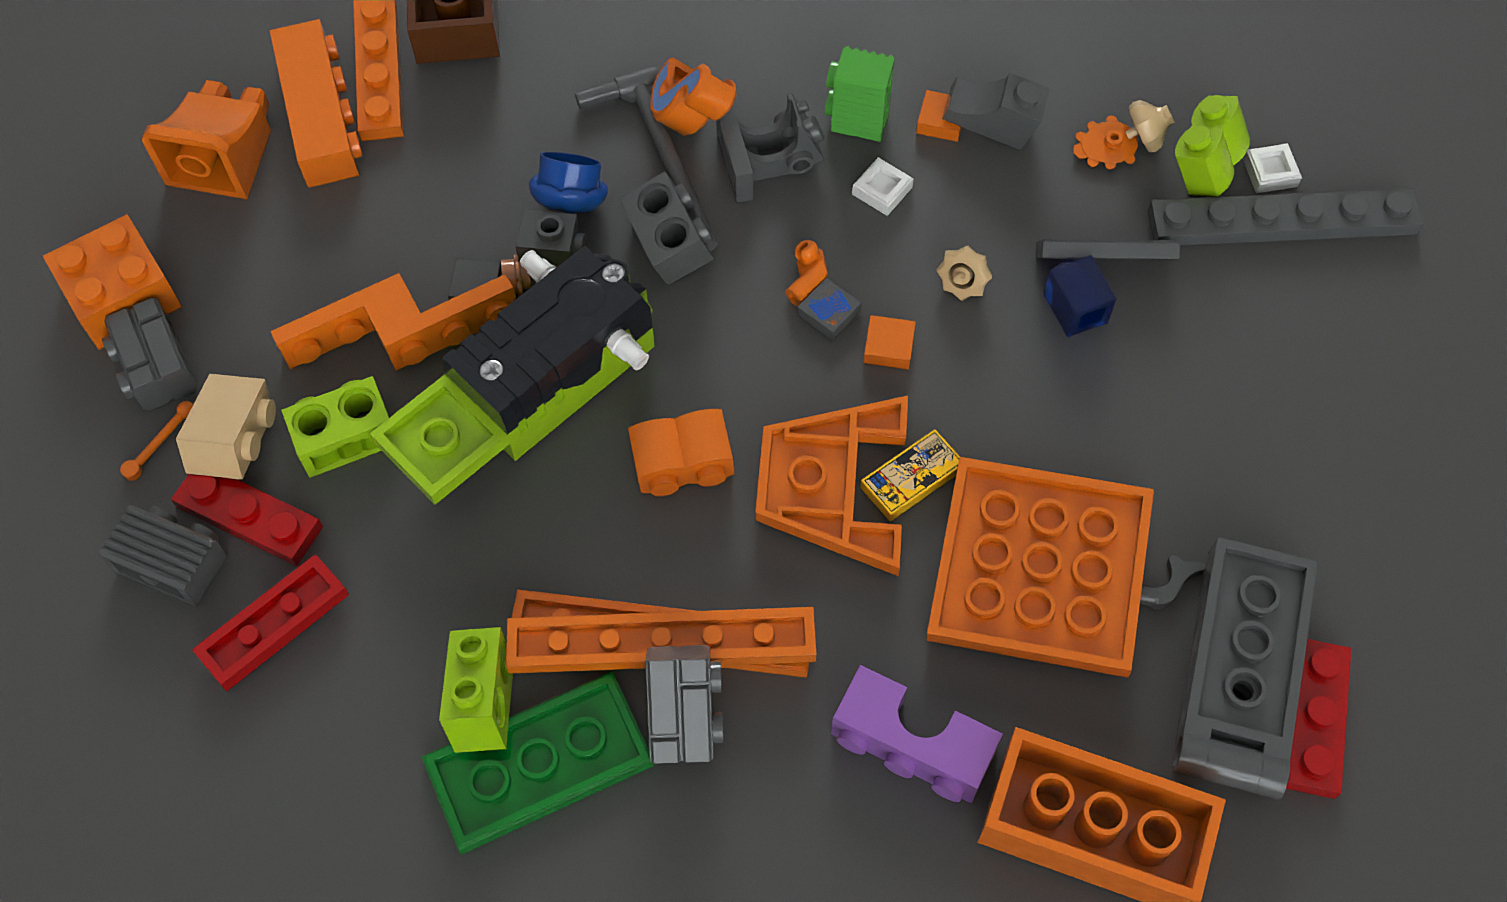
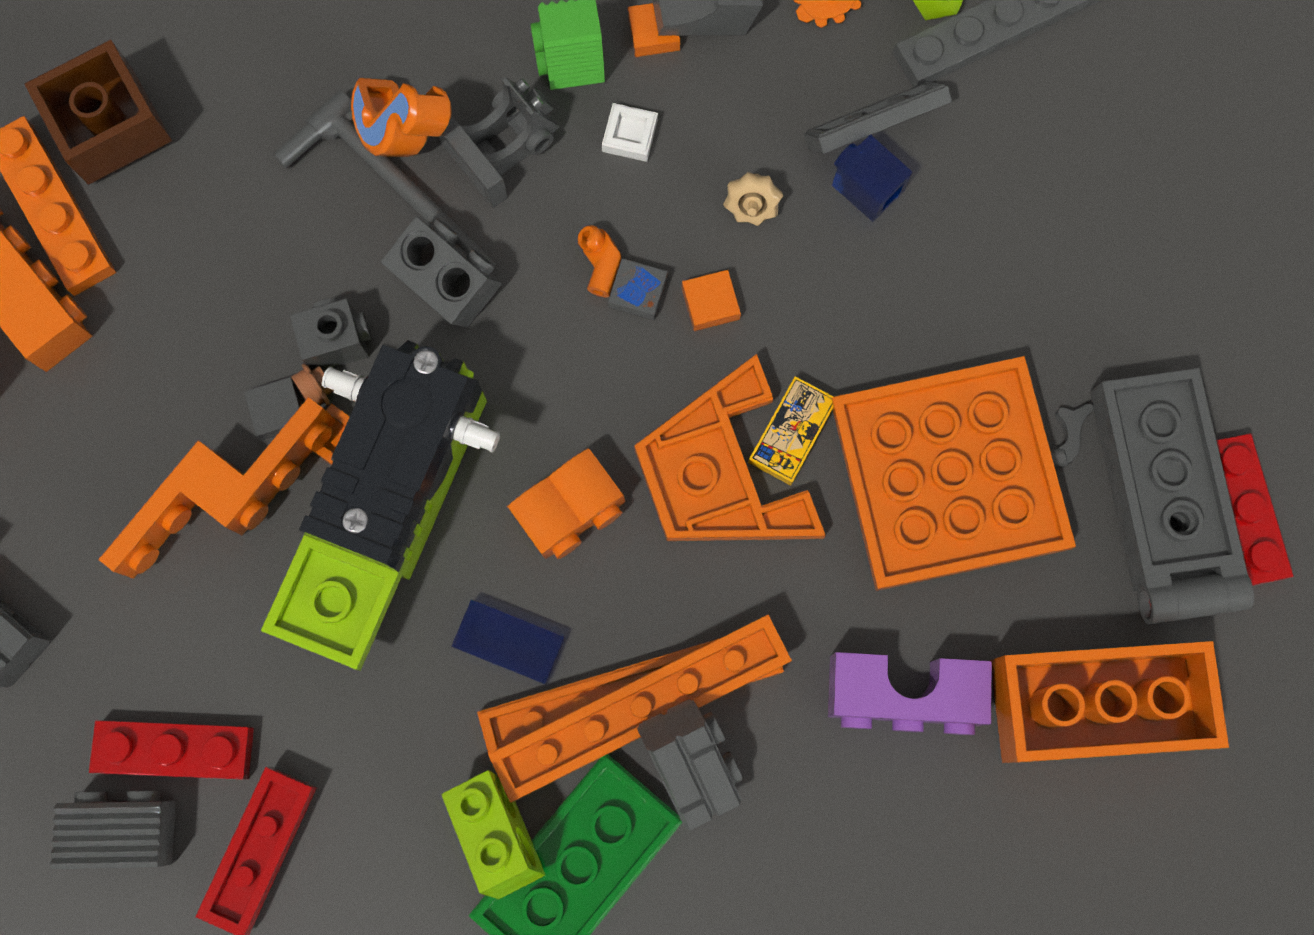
camera: 25 degrees left, 15 degrees up
(132, 468) = (32, 754): orange hinge -> none
(226, 426) = (106, 677): tan brick -> none
(343, 435) = (227, 633): lime brick -> none
(568, 183) = (319, 263): blue piece -> none
(574, 546) = (508, 642): none -> clear blue tile

